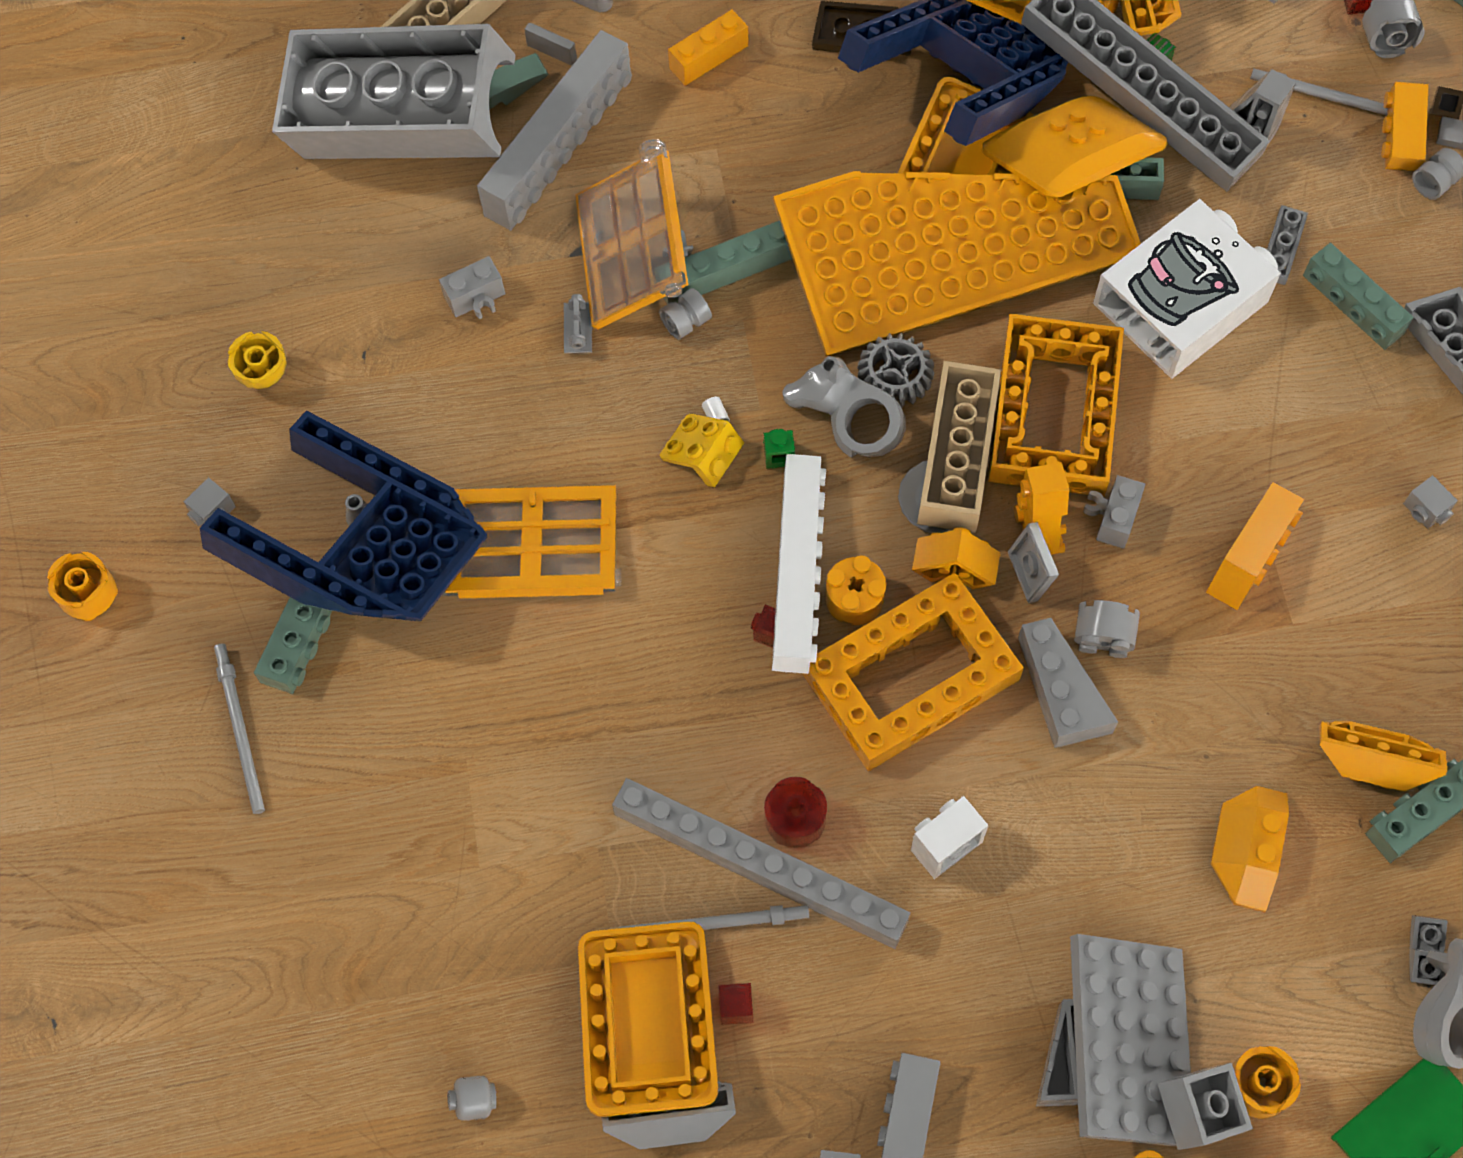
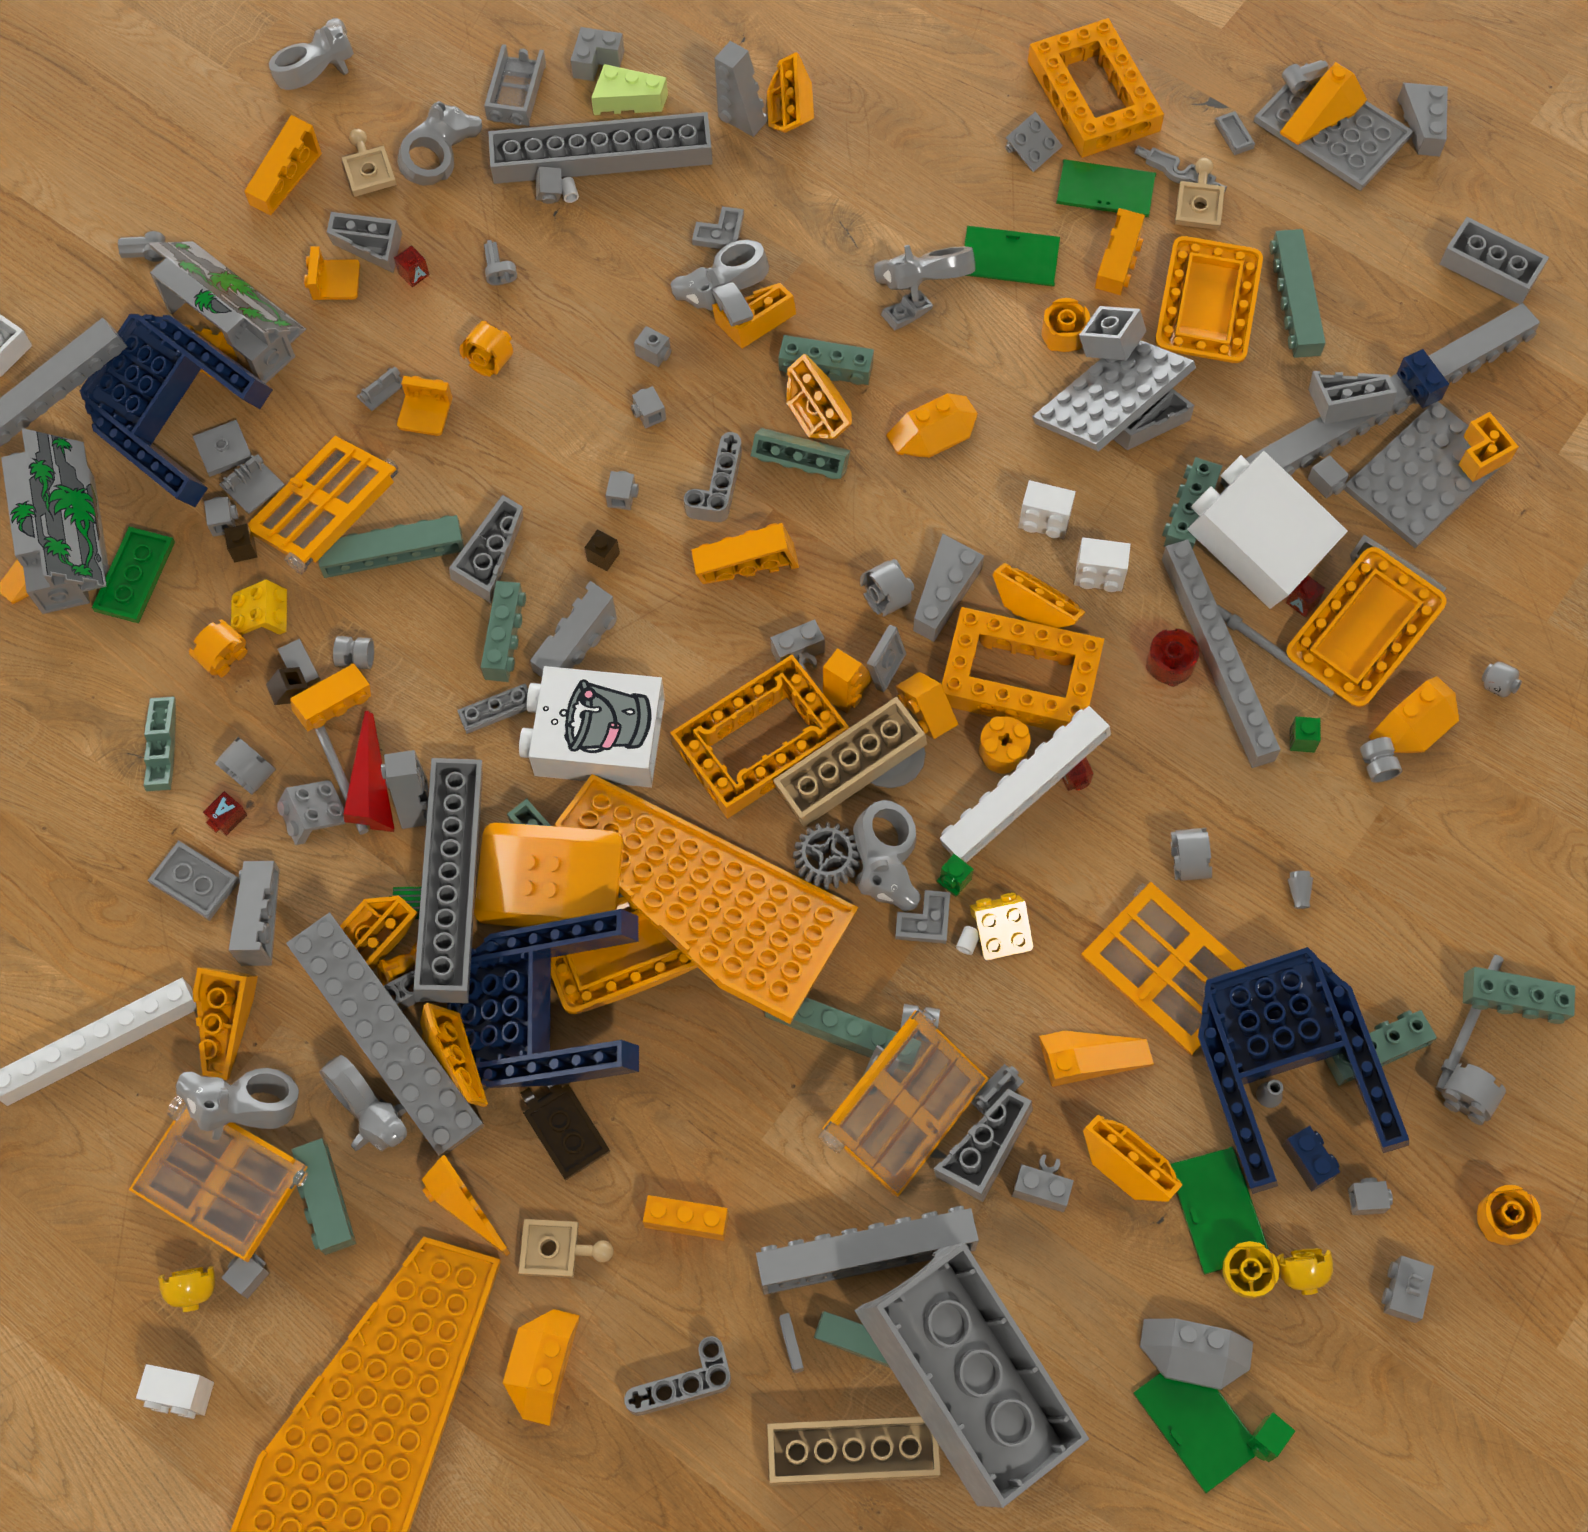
camera: 135 degrees left, 0 degrees up
(123, 464) = (1407, 1289): none -> light grey brick
(147, 274) = (1270, 1437): none -> green brick
(185, 653) = (1472, 1093): none -> light grey brick
(207, 251) = (1202, 1424): none -> green container
(211, 781) = (1519, 994): none -> sand green brick
(218, 405) = (1306, 1269): none -> yellow cylinder
(252, 284) = (1196, 1352): none -> light grey wedge
(281, 490) = (1311, 1158): none -> dark blue brick
(320, 389) = (1218, 1204): none -> green container
(421, 364) = (1130, 1161): none -> light orange wedge
(485, 709) = (1300, 887): none -> light grey cone
(513, 893) = (1380, 759): none -> light grey wheel
(515, 983) = (1420, 718): none -> light orange wedge
(534, 410) = (1085, 1056): none -> light orange wedge
(540, 268) = (983, 1151): none -> light grey wedge
(601, 639) = (1191, 854): none -> light grey brick
(607, 854) = (1305, 734): none -> green brick
(758, 394) = (930, 925): none -> light grey plate
(836, 1018) = (1264, 527): none -> white brick
(934, 999) = (1199, 479): none -> sand green brick
(972, 753) = (1035, 599): none -> light orange wedge
(1056, 843) = (1046, 509): none -> white brick
(1299, 346) = (577, 632): none -> light grey wedge
(1307, 51) = (309, 809): none -> light grey bracket
(1307, 108) = (367, 792): none -> red wedge
(1331, 684) = (800, 453): none -> sand green brick
(1371, 595) = (721, 477): none -> light grey beam
(1374, 434) = (602, 550): none -> dark brown brick

